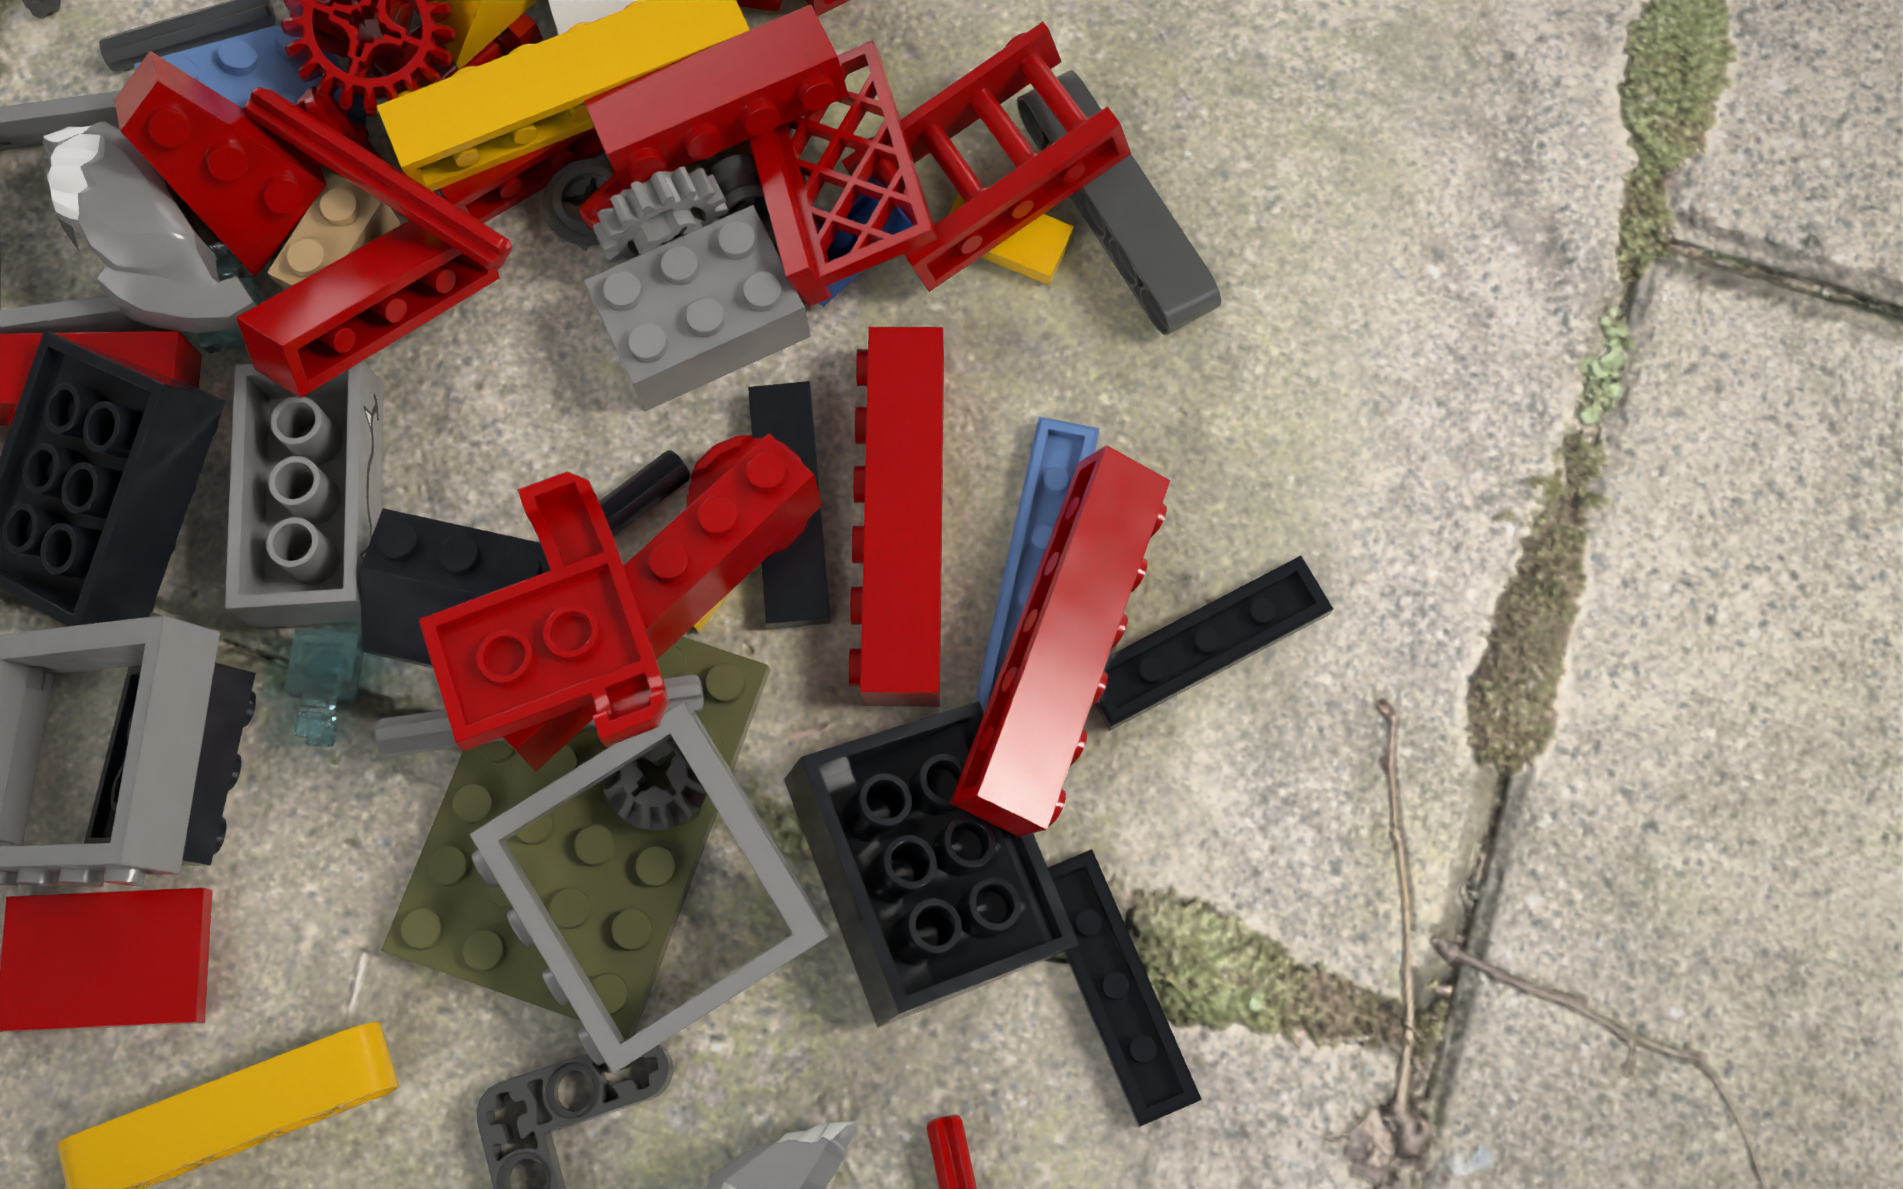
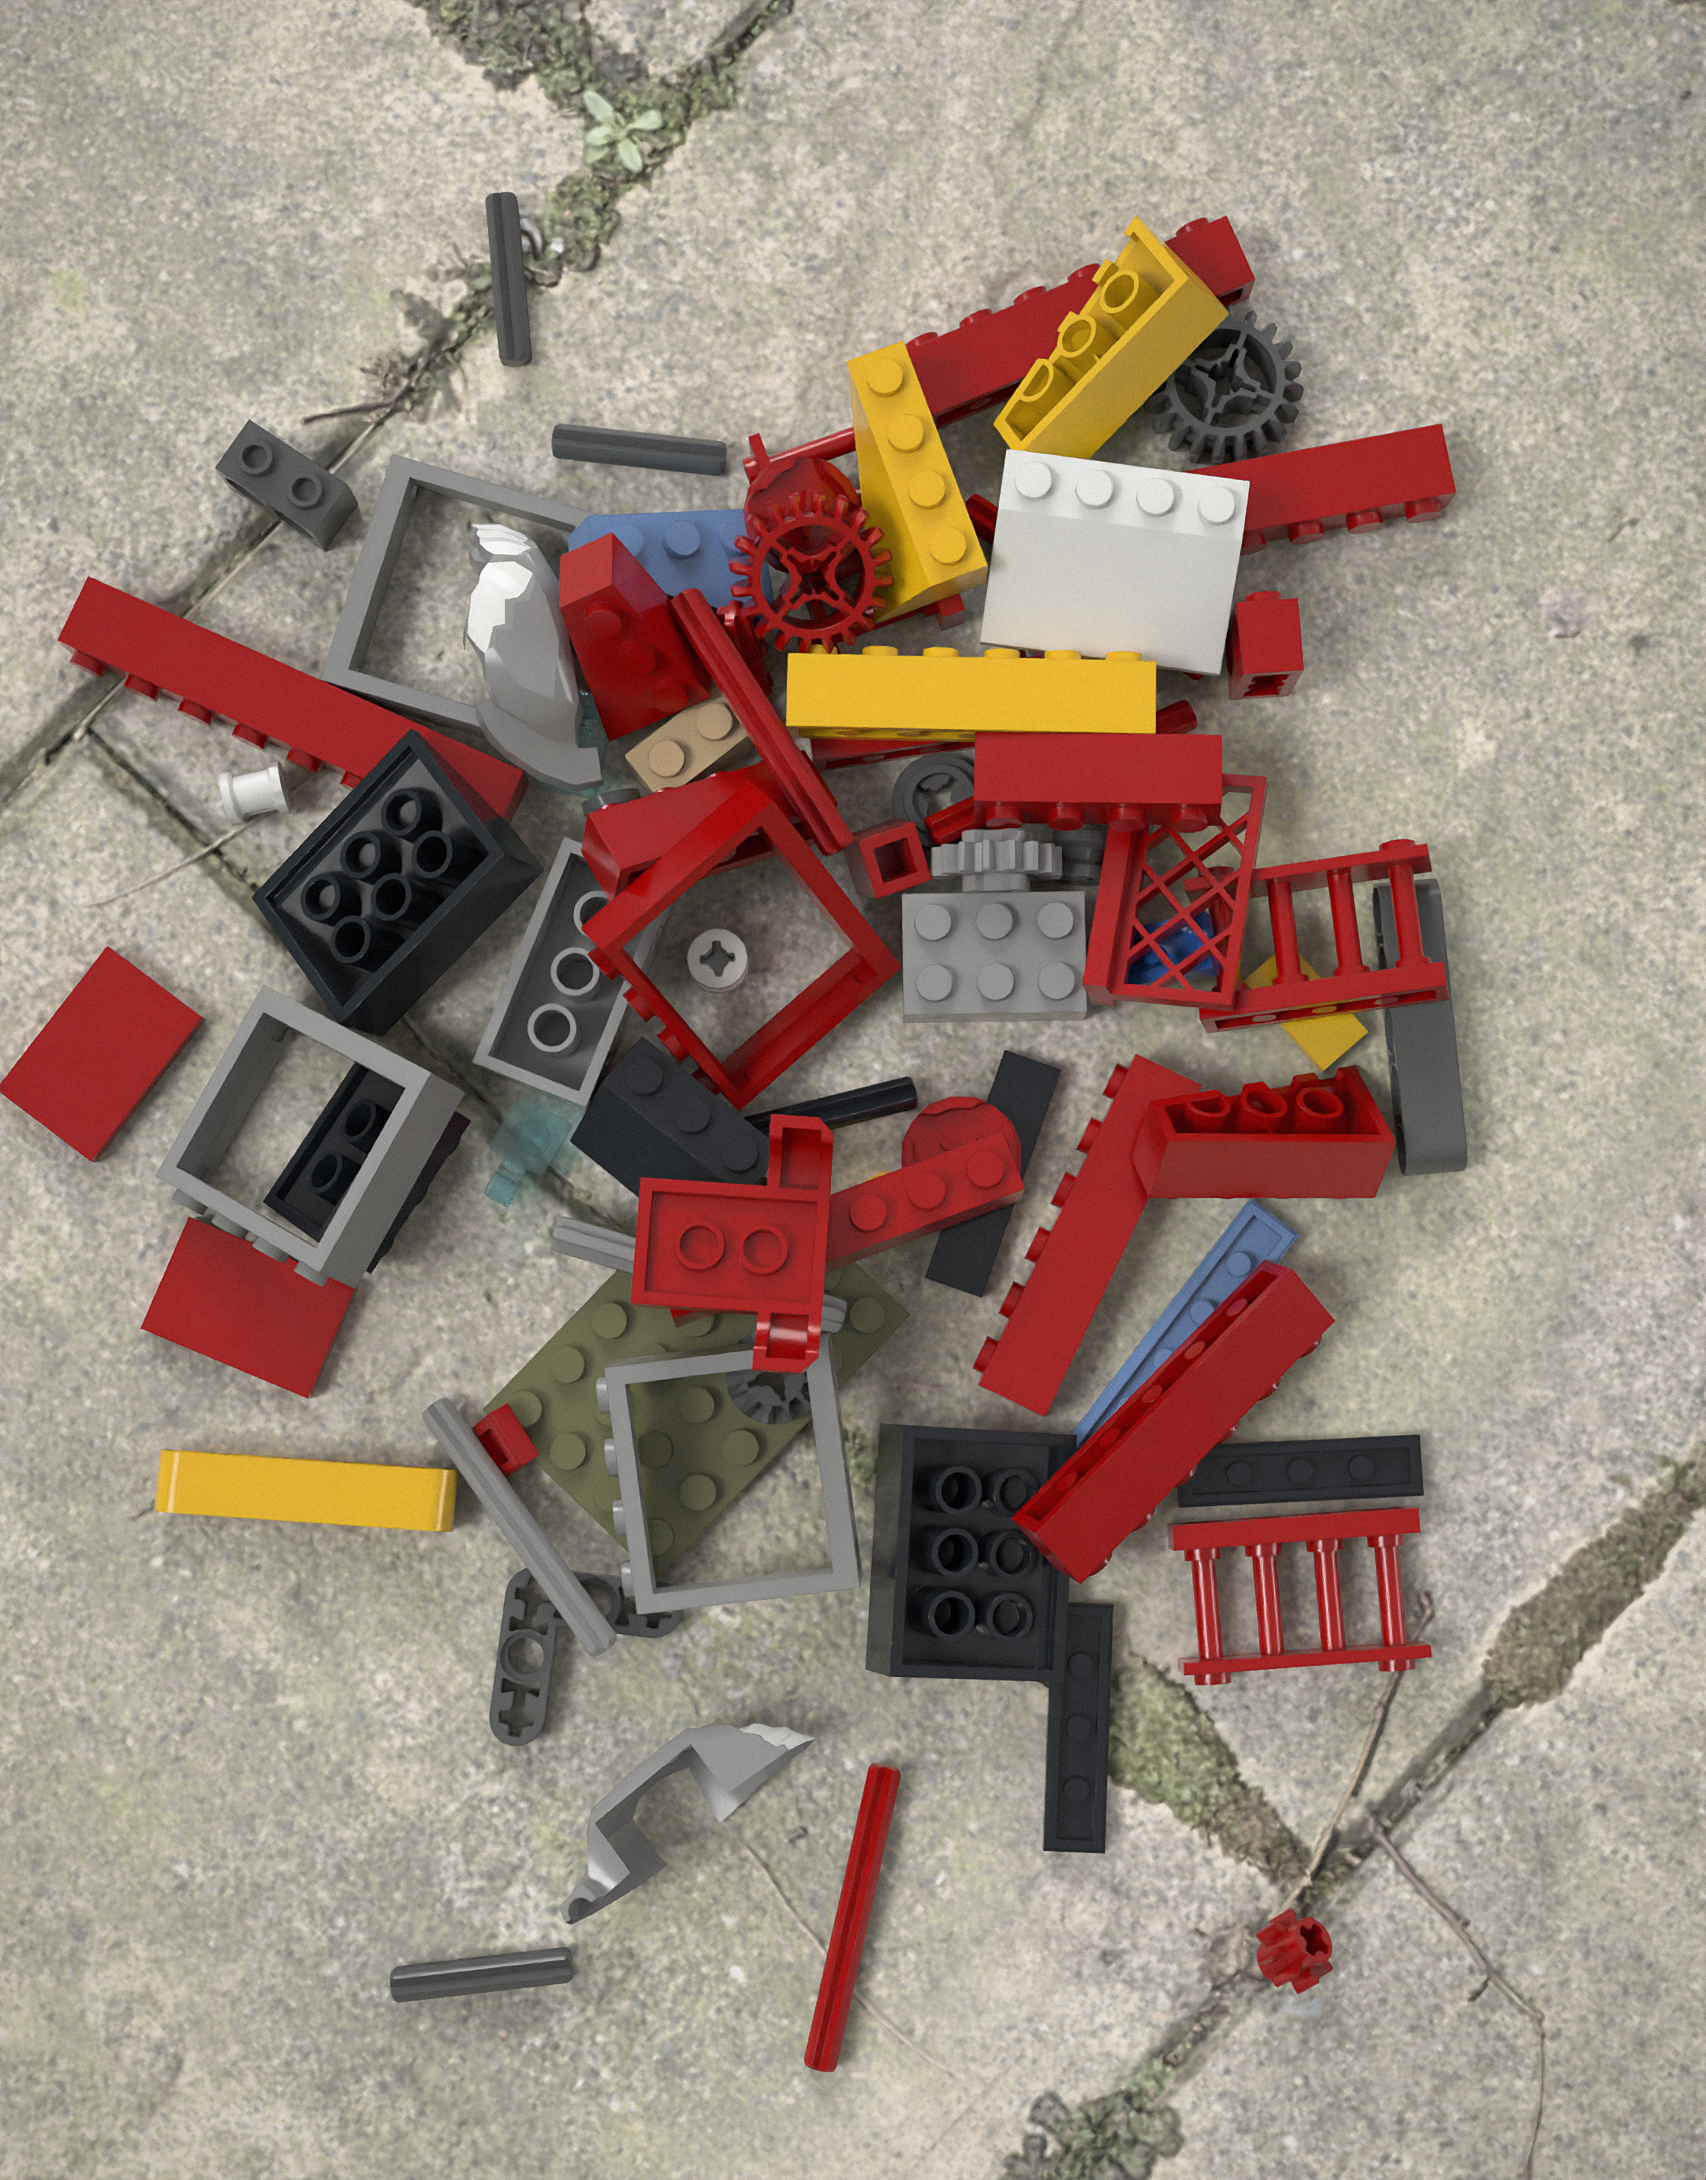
camera: 25 degrees right, 10 degrees up
(415, 970) = (505, 1440): none -> red tile
(451, 439) = (719, 972): none -> white wheel
(466, 1049) = (519, 1527): none -> light grey axle
(494, 297) = (808, 1014): none -> red window
(556, 261) = (886, 859): none -> red brick
(1025, 350) = (1267, 1142): none -> red wedge
(1260, 687) = (1324, 1538): none -> red fence
(1437, 1106) = (1294, 1951): none -> red gear

